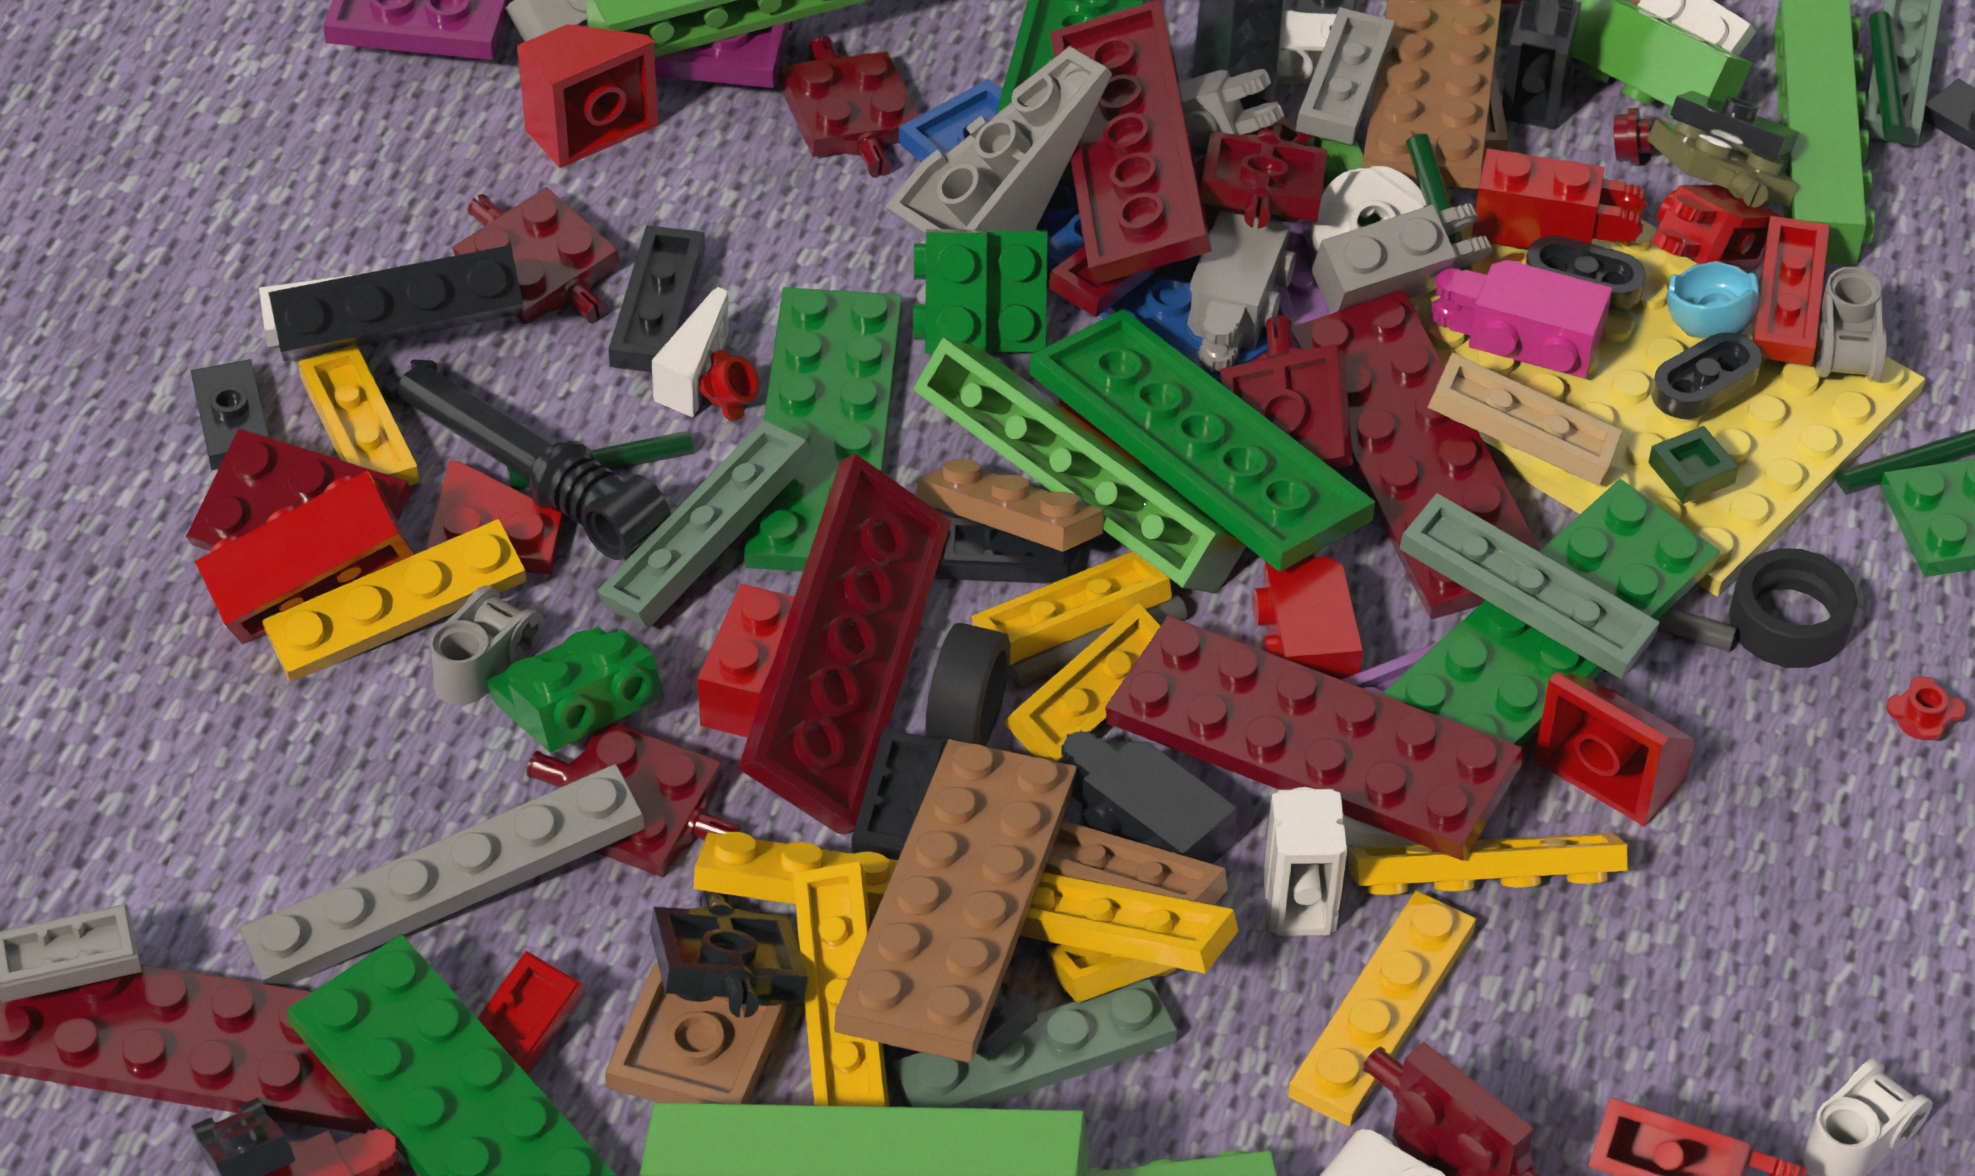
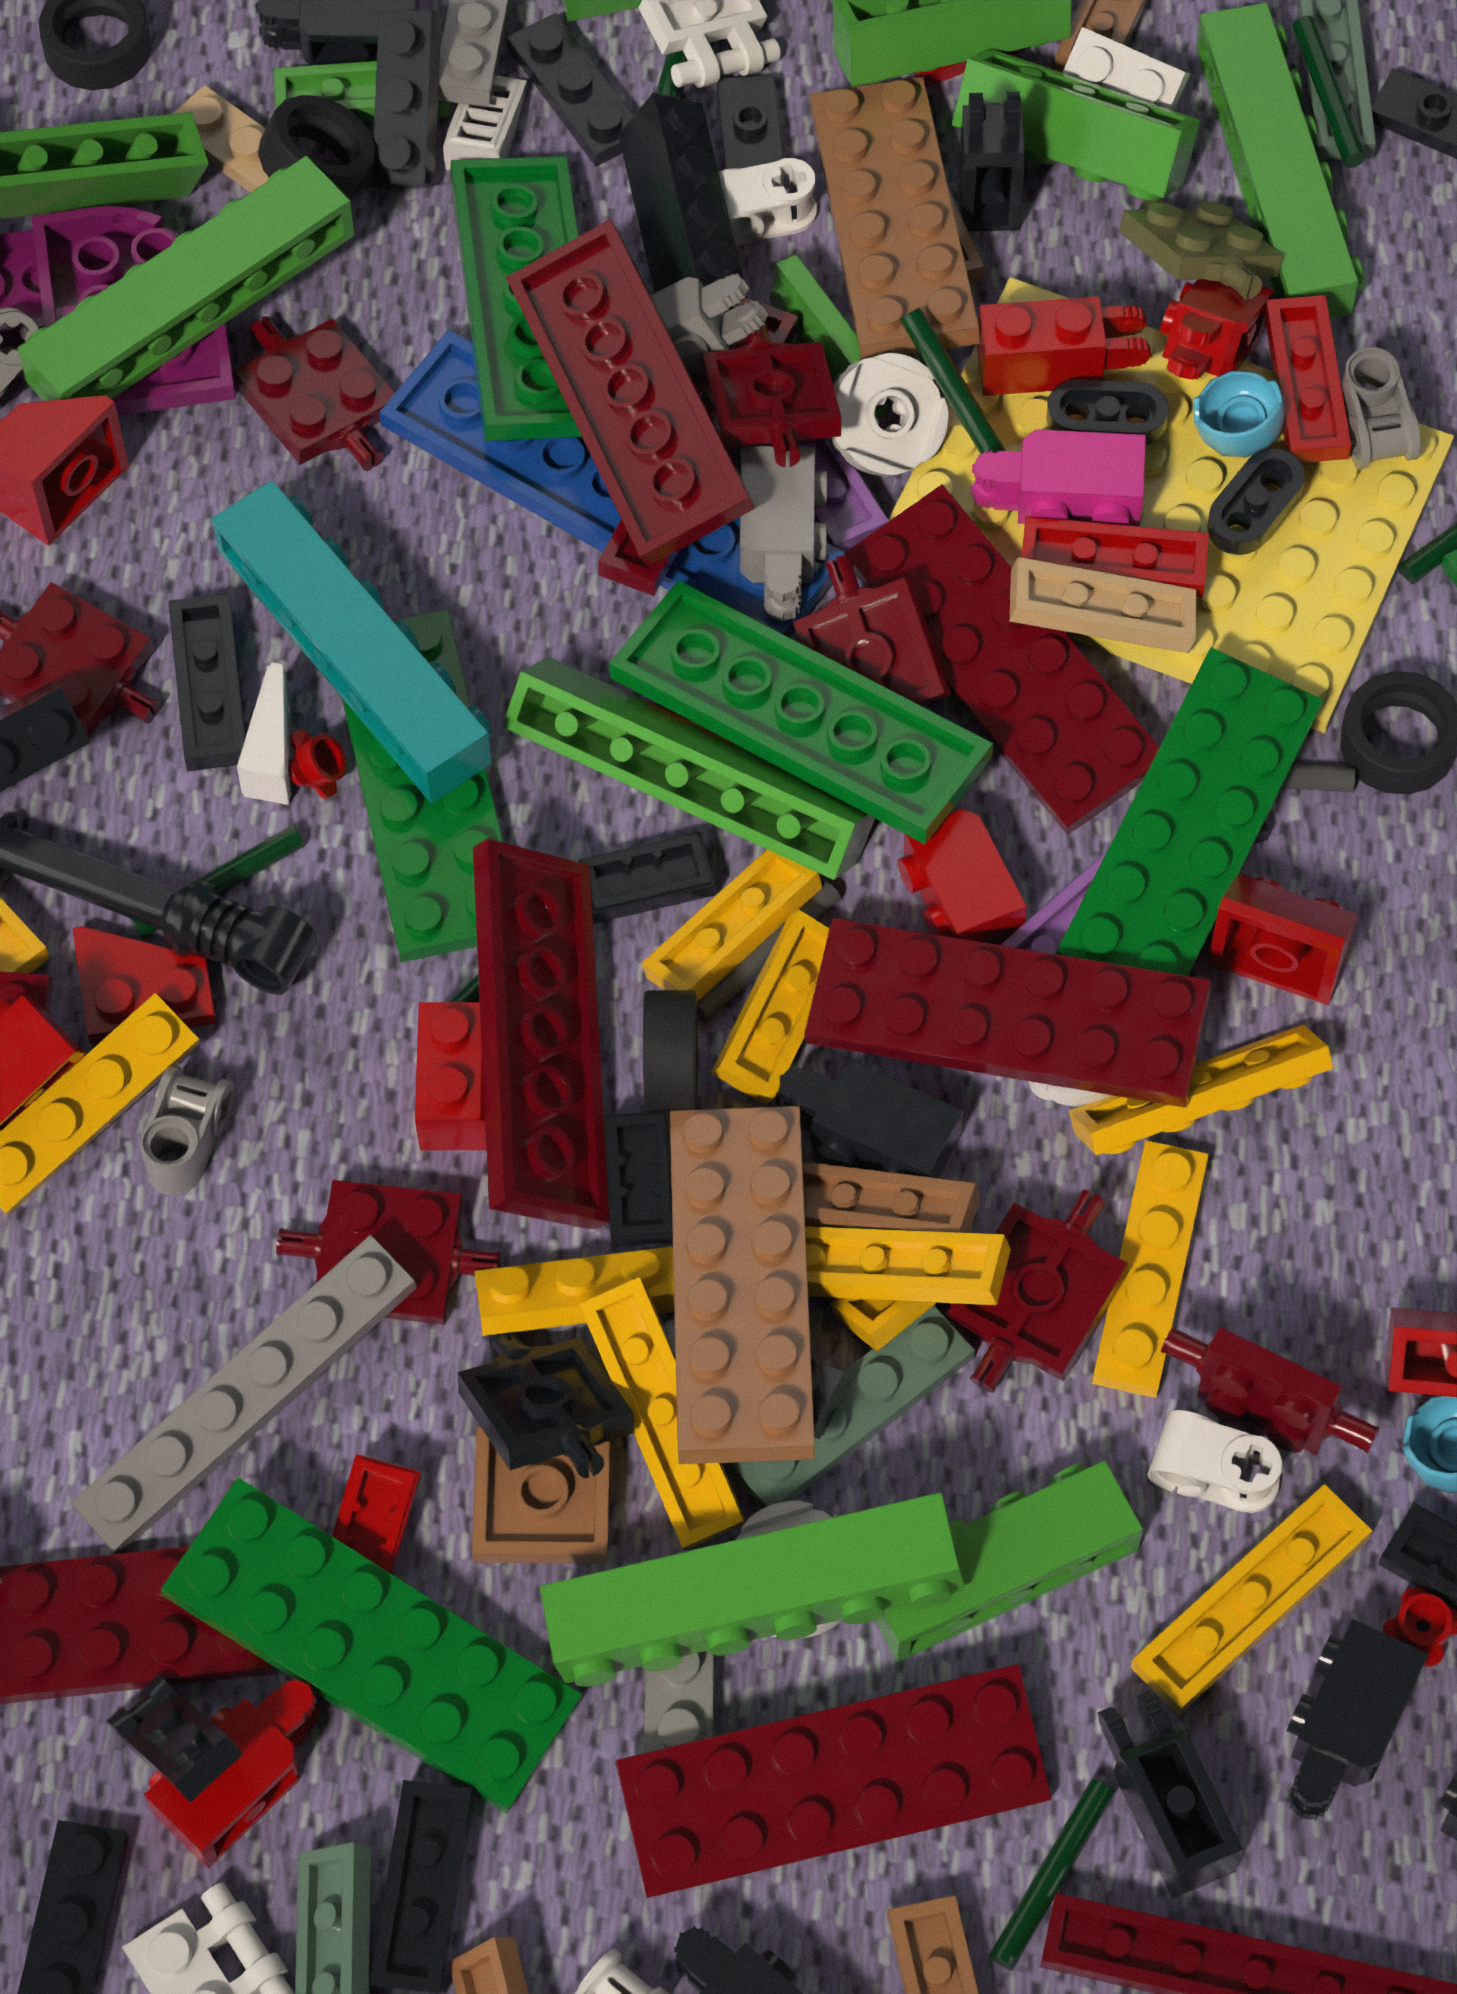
camera: 15 degrees left, 15 degrees up
(577, 686) = (294, 1151): green plate -> none
(705, 524) = (354, 936): sand green plate -> none
(801, 288) = (354, 641): none -> teal brick
(982, 289) = (531, 594): green plate -> none
(1010, 504) = (639, 832): medium nougat plate -> none
(1011, 162) = (509, 462): light grey wedge -> none
(1261, 993) = (1049, 1294): none -> dark red plate
(1304, 861) = (1043, 1148): white brick -> none
(1345, 76) = (810, 245): light grey plate -> none
(1395, 256) = (925, 455): light grey hinge -> none
(1529, 585) = (1166, 801): sand green plate -> none
(1583, 388) = (1122, 550): none -> red plate
(1631, 136) = (1100, 225): dark red plate -> none
(1693, 464) = (1272, 608): dark green plate -> none
(1734, 121) = (1204, 201): black plate -> none

